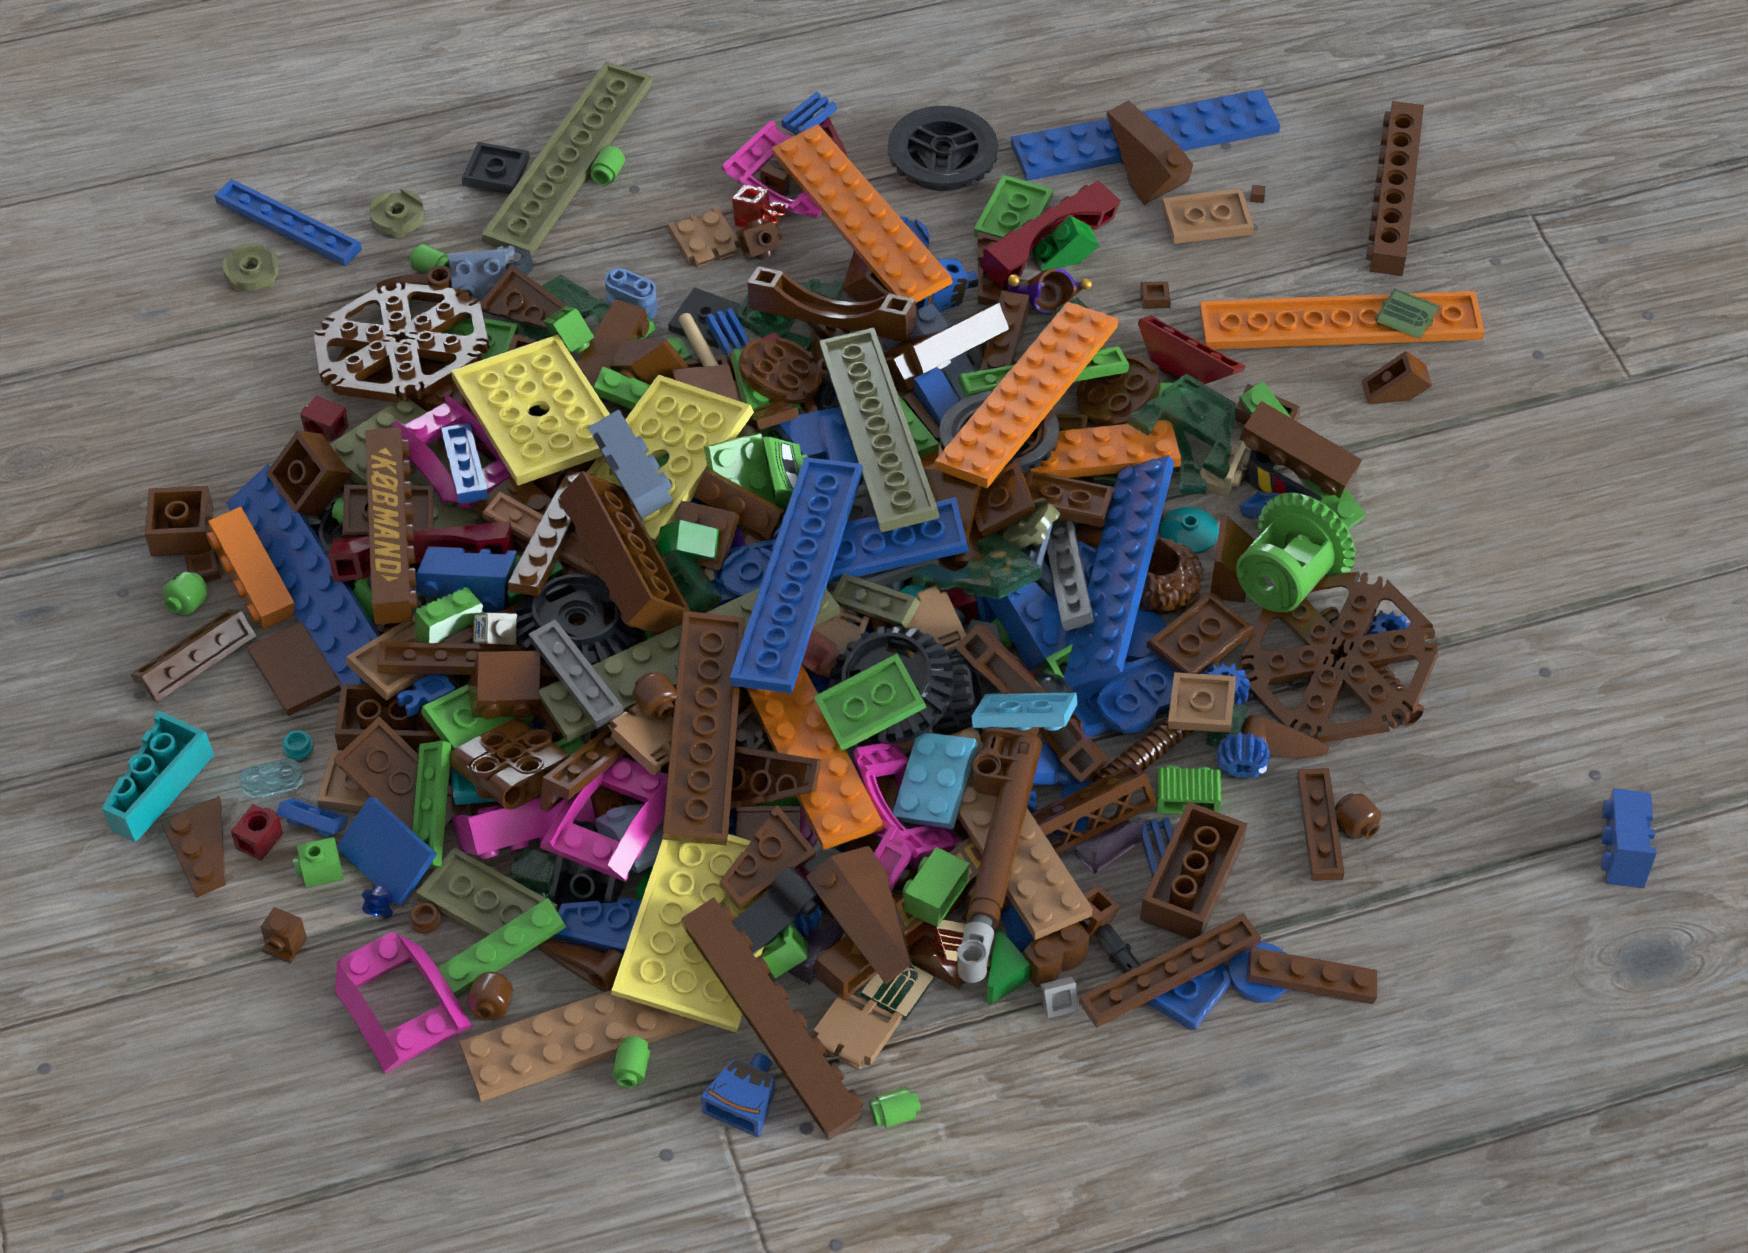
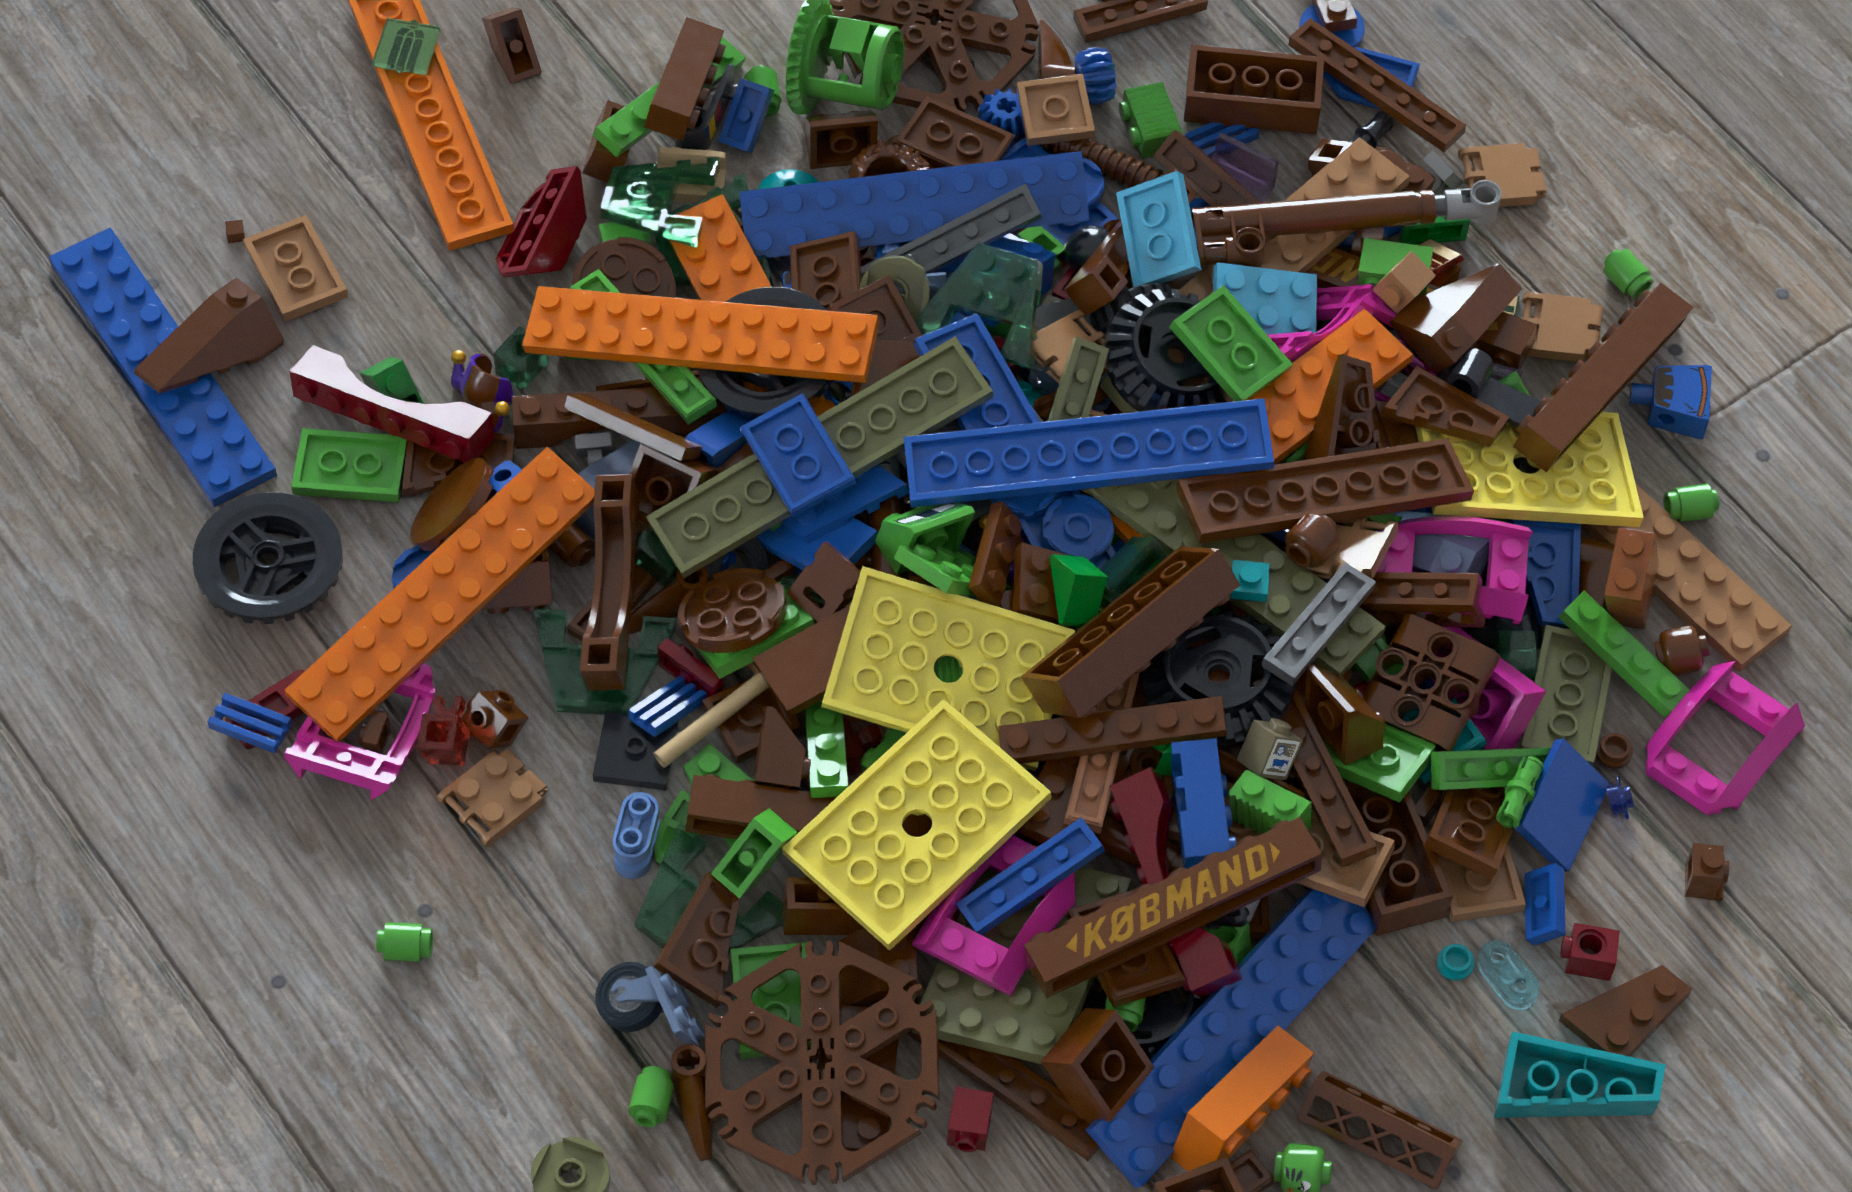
camera: 110 degrees left, 5 degrees up
(294, 668) = (1350, 1010): reddish brown tile -> none
(318, 862) = (1600, 873): bright green brick -> none
(398, 806) = (1519, 791): none -> bright green pin
(425, 691) = (1372, 808): blue plate -> none
(495, 168) = (447, 1082): black plate -> none
(557, 959) = (1632, 577): none -> dark orange brick
(567, 158) = (400, 997): olive plate -> none
(631, 465) = (994, 667): sand blue wedge -> none
(639, 646) = (1252, 579): none -> teal plate
(878, 406) = (797, 455): none -> blue tile
(898, 858) = (1403, 282): none -> medium nougat brick
(942, 241) = (452, 503): none -> reddish brown tile
(1041, 1048) = (1510, 167): none -> medium nougat plate
(1155, 295) = (439, 298): reddish brown tile -> none
(1396, 188) = (190, 93): reddish brown brick -> none

